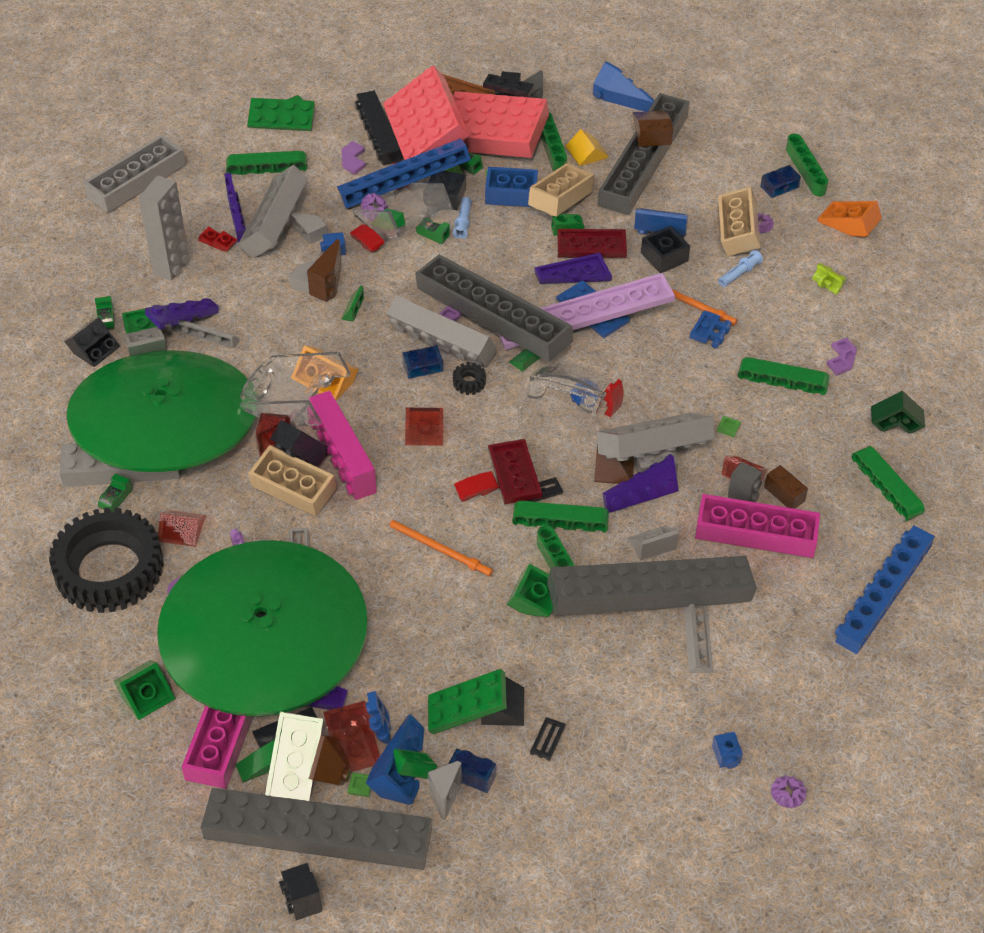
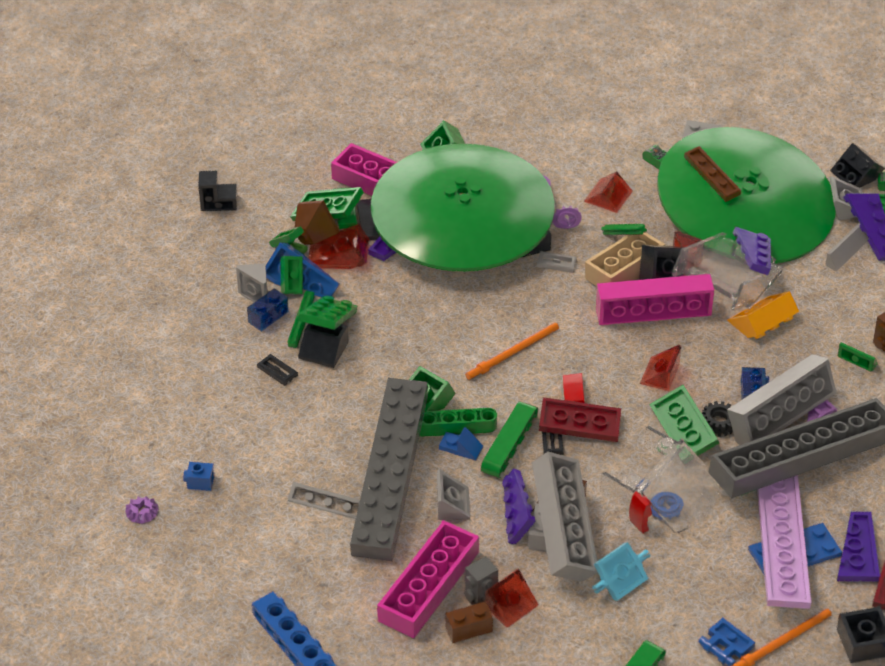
camera: 110 degrees right, 5 degrees down
(98, 531) = (587, 118): black tyre -> none
(166, 417) = (712, 173): none -> reddish brown tile
(254, 484) = (624, 229): none -> green axle
(263, 371) = (756, 249): none -> dark purple wing
(317, 828) = (263, 214): dark grey brick -> none
(353, 787) = (286, 237): none -> green plate
(380, 718) = (347, 264): blue plate -> none
(466, 741) = (298, 326): none -> green axle
(488, 397) = (684, 420): none -> plate
(582, 552) = (464, 445): none -> blue slope
(684, 402) = (621, 571): none -> medium azure plate
(728, 426) = (578, 612): bright green tile -> none

